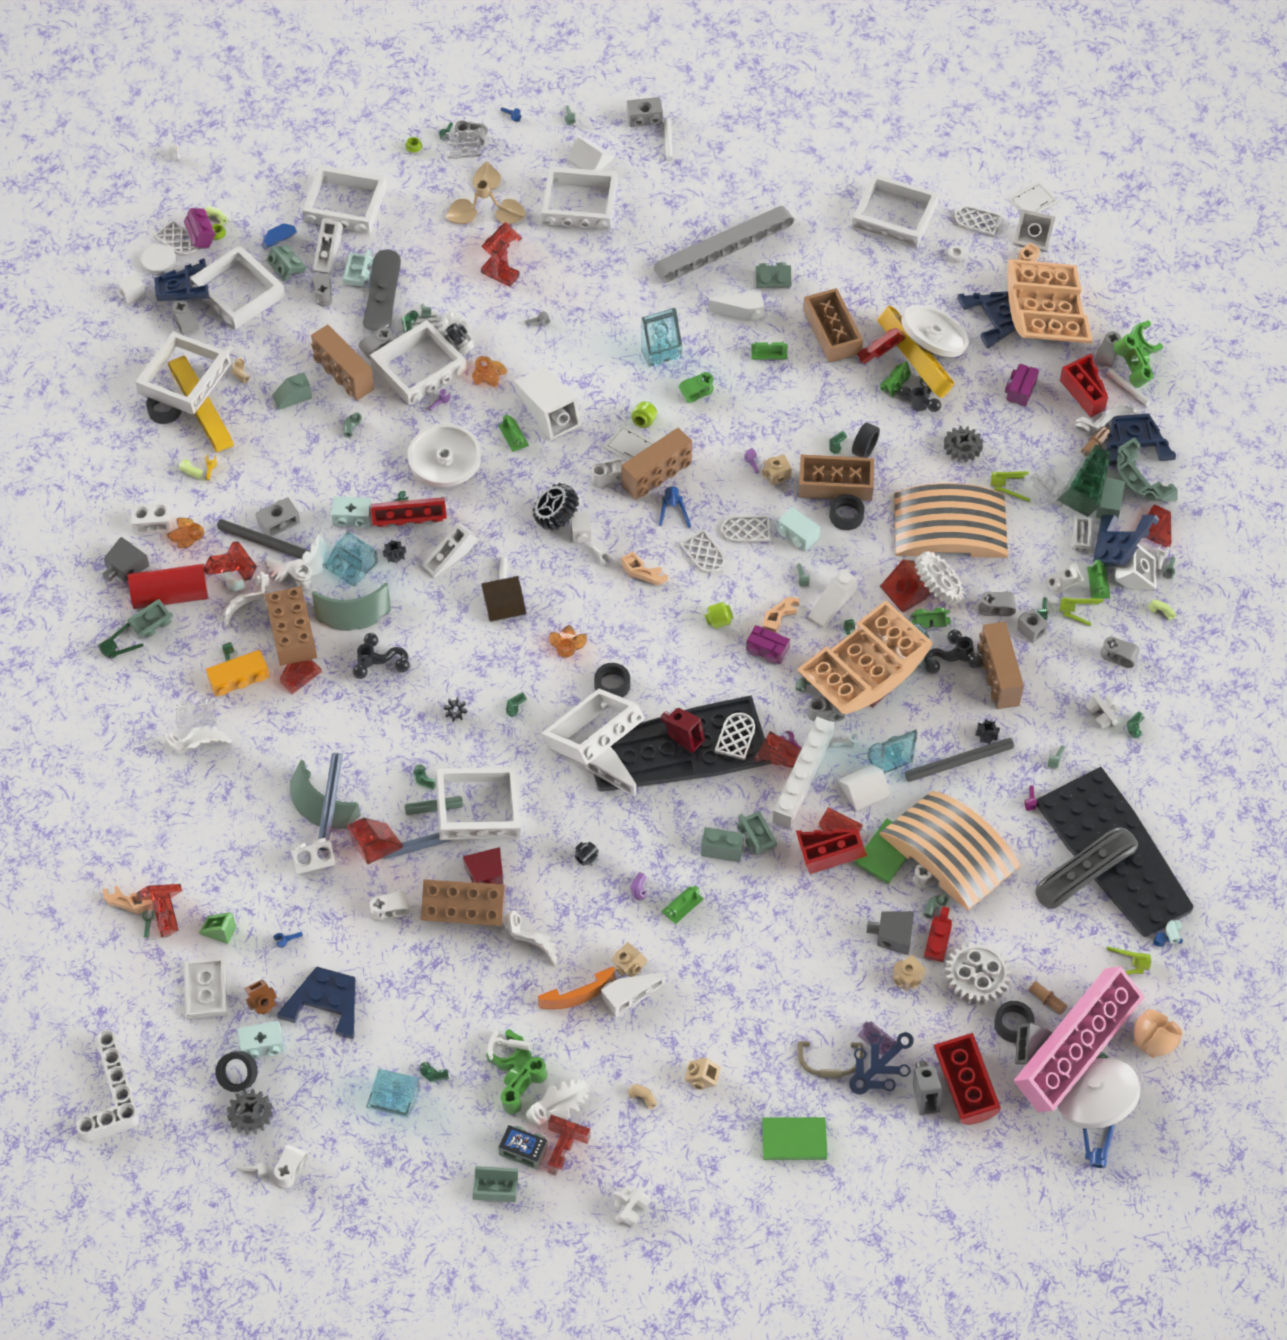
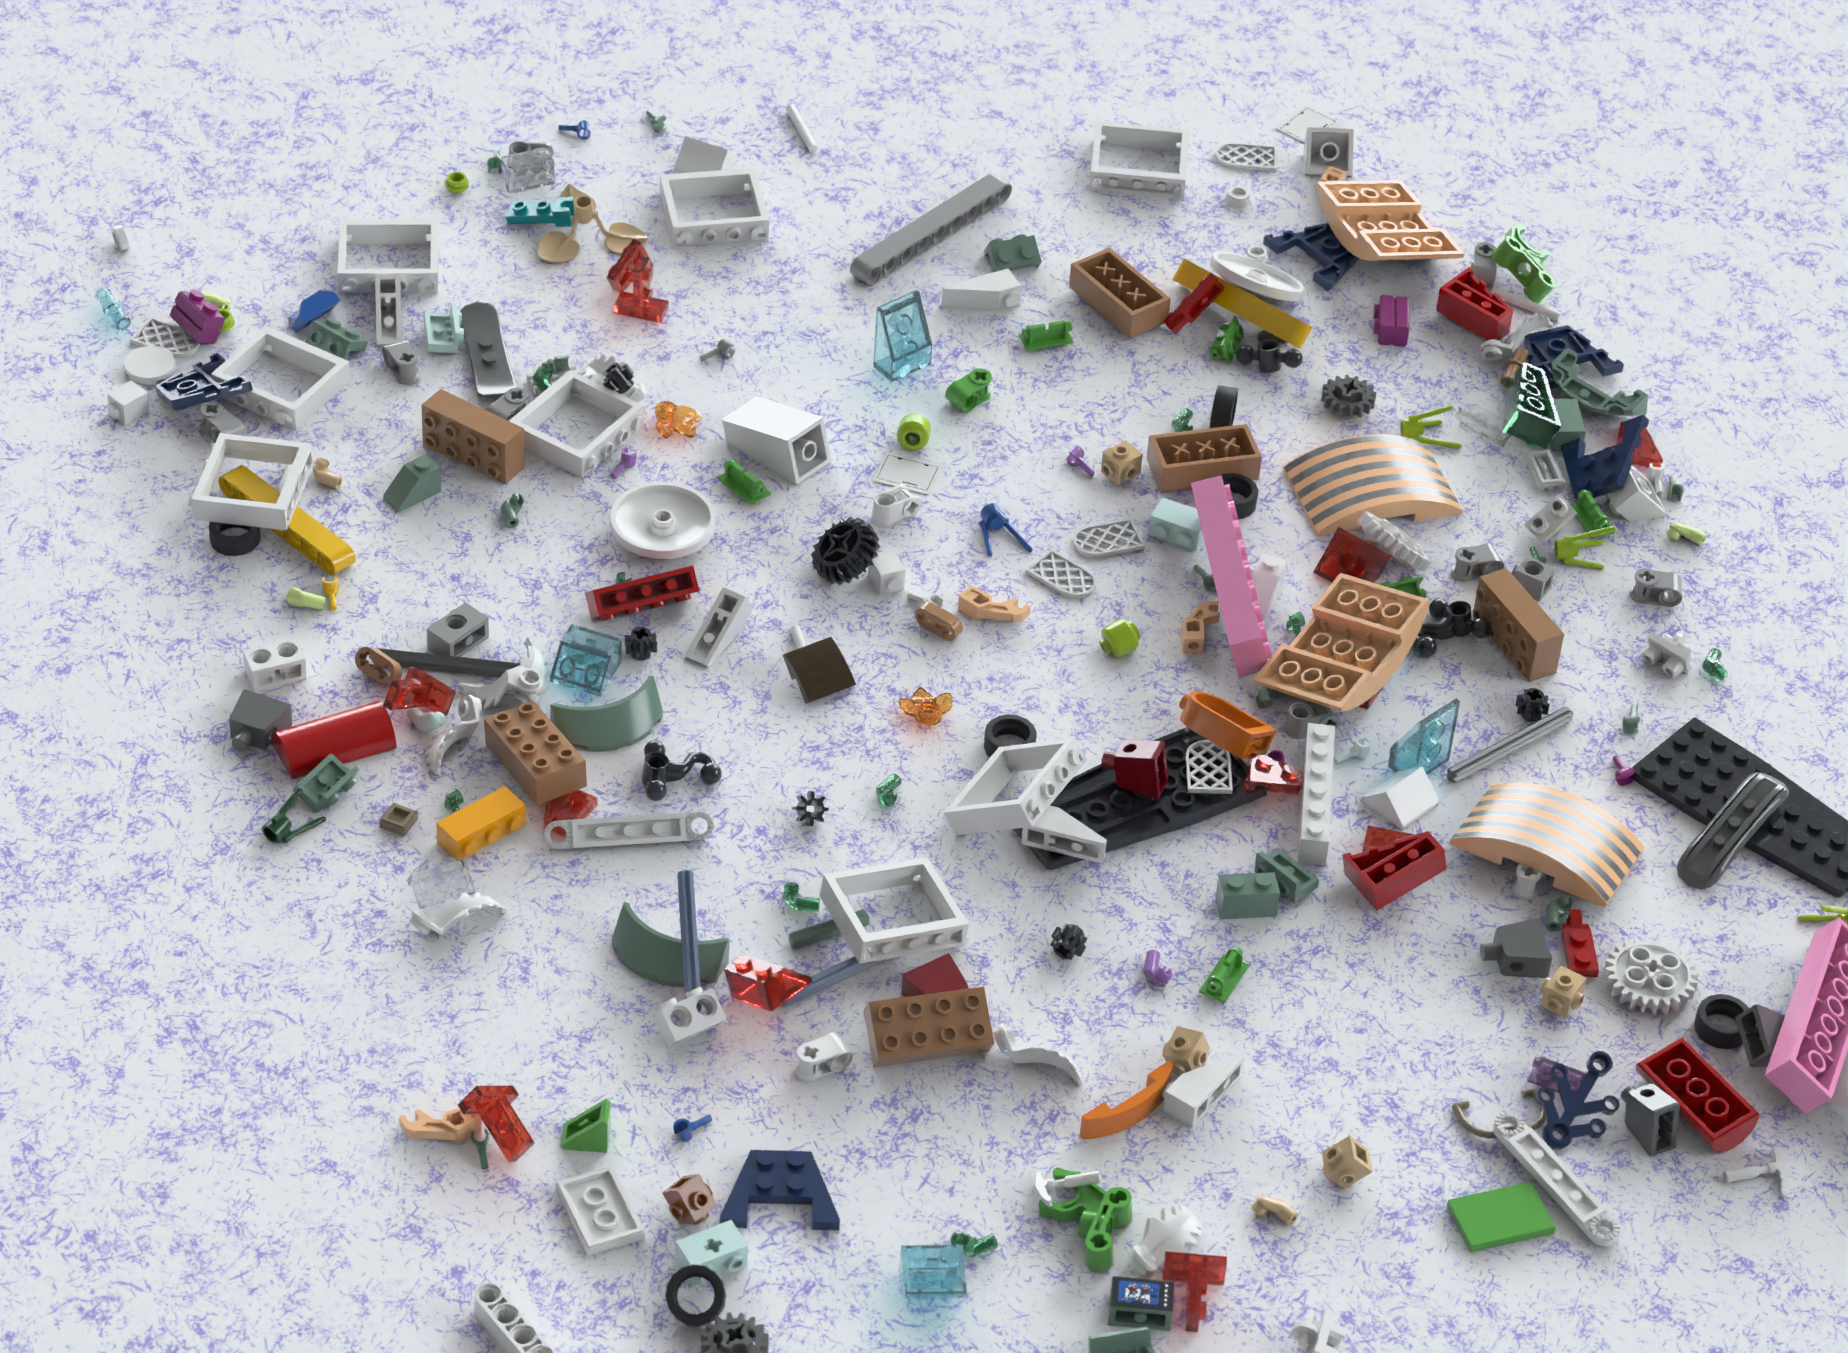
camera: 20 degrees left, 15 degrees down
(149, 209) = (113, 308): none -> clear light blue pin
(184, 532) = (331, 674): clear orange plate -> none
(188, 656) = (398, 819): none -> dark tan tile
(217, 533) = (381, 660): none -> medium nougat beam
(330, 699) = (628, 830): none -> white plate
(351, 511) = (559, 607): light aqua brick -> none
(458, 180) = (542, 212): none -> teal plate
(601, 575) = (938, 621): none -> medium nougat beam
(644, 111) = (758, 100): light grey brick -> none
(656, 463) = (959, 480): medium nougat brick -> none
(763, 723) = (1225, 724): none -> orange window
(767, 644) = (1200, 660): magenta brick -> none
(808, 585) = (1231, 575): none -> bright pink brick
(843, 1119) = (1556, 1178): none -> white plate
(882, 858) = (1466, 873): bright green tile -> none
(947, 308) = (1258, 253): none -> white plate
(985, 1145) = (1777, 1167): none -> white piece
(1048, 997) = (1753, 986): medium nougat axle -> none

